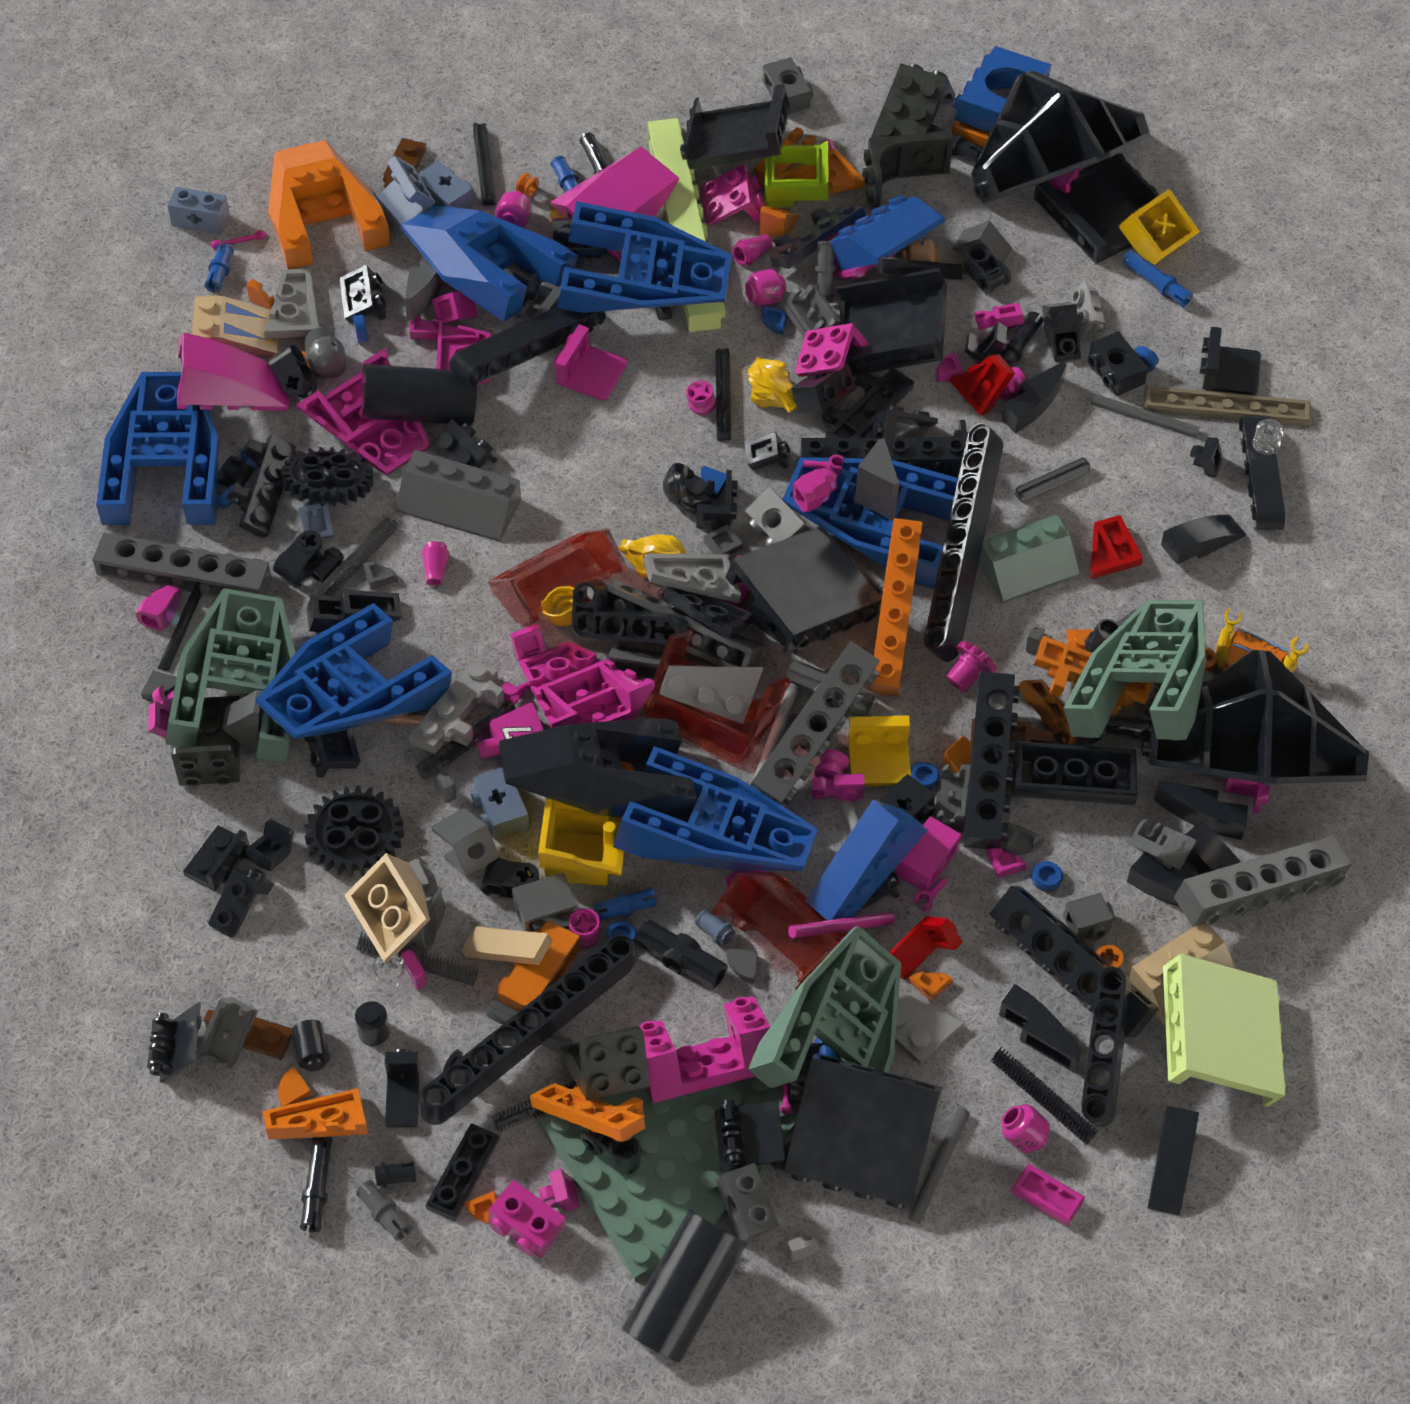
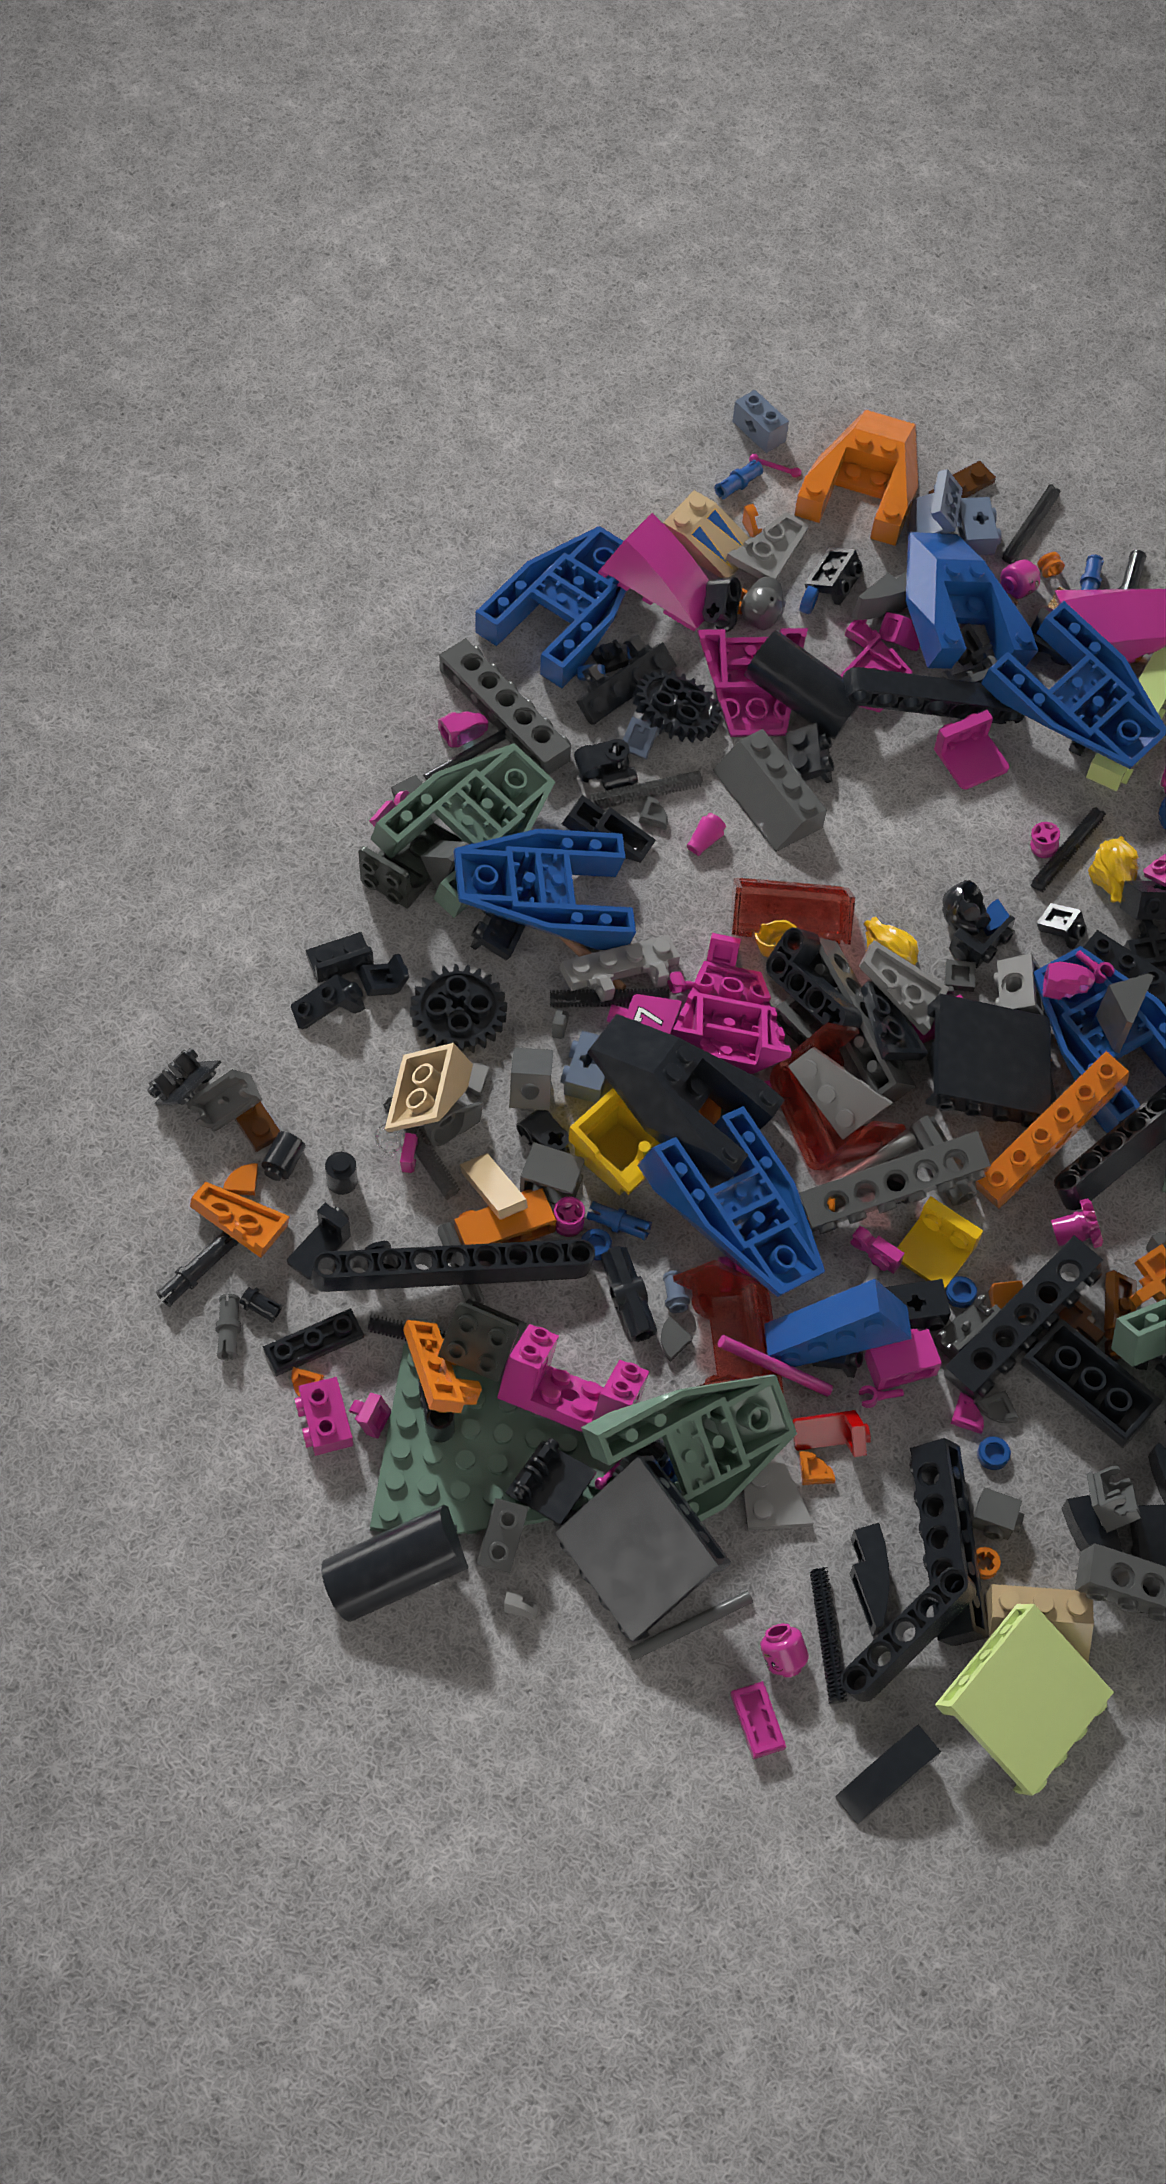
camera: 35 degrees right, 5 degrees up
(832, 763) = (887, 1226): dark pink wheel -> none

